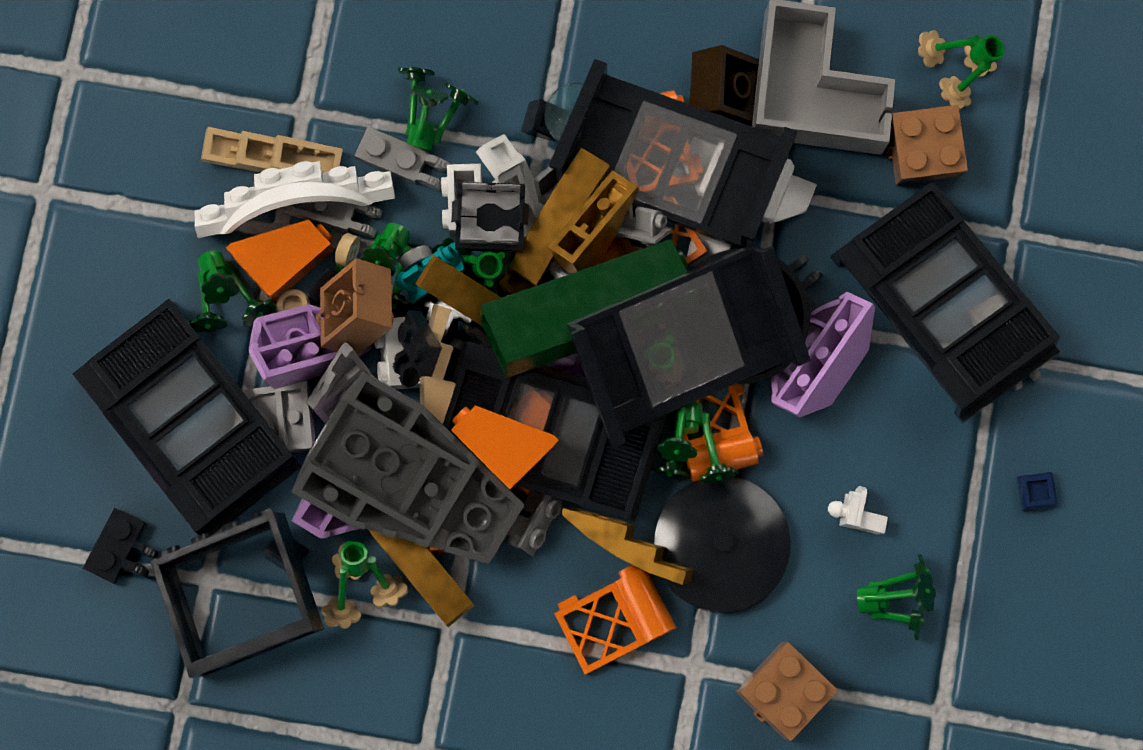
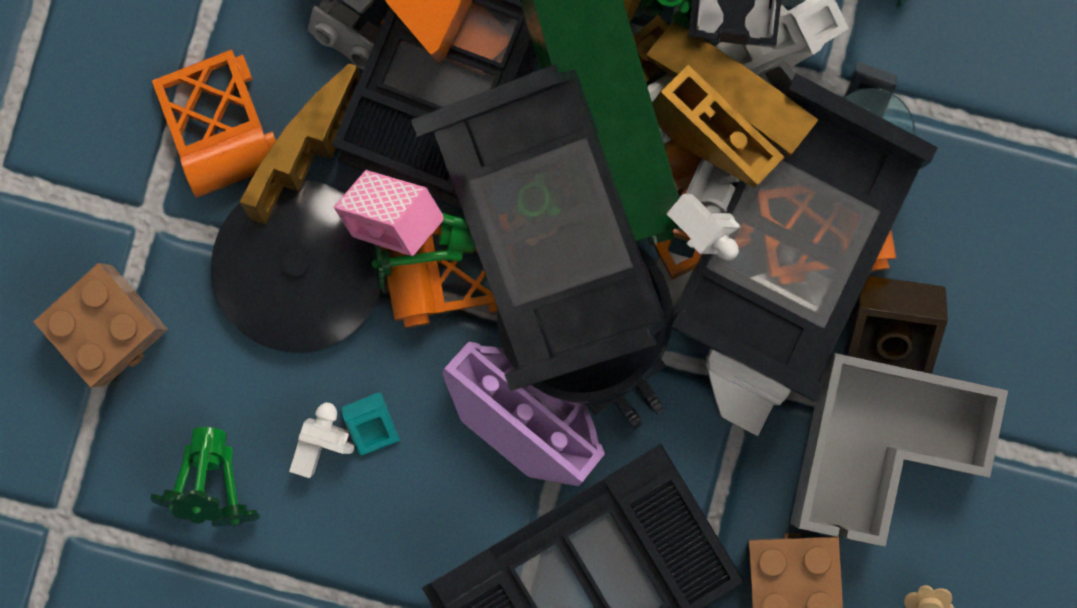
camera: 90 degrees right, 5 degrees up
(675, 222) = (707, 230): none -> white piece
(681, 465) = (389, 212): none -> bright pink panel
(838, 477) = (370, 424): none -> teal slope

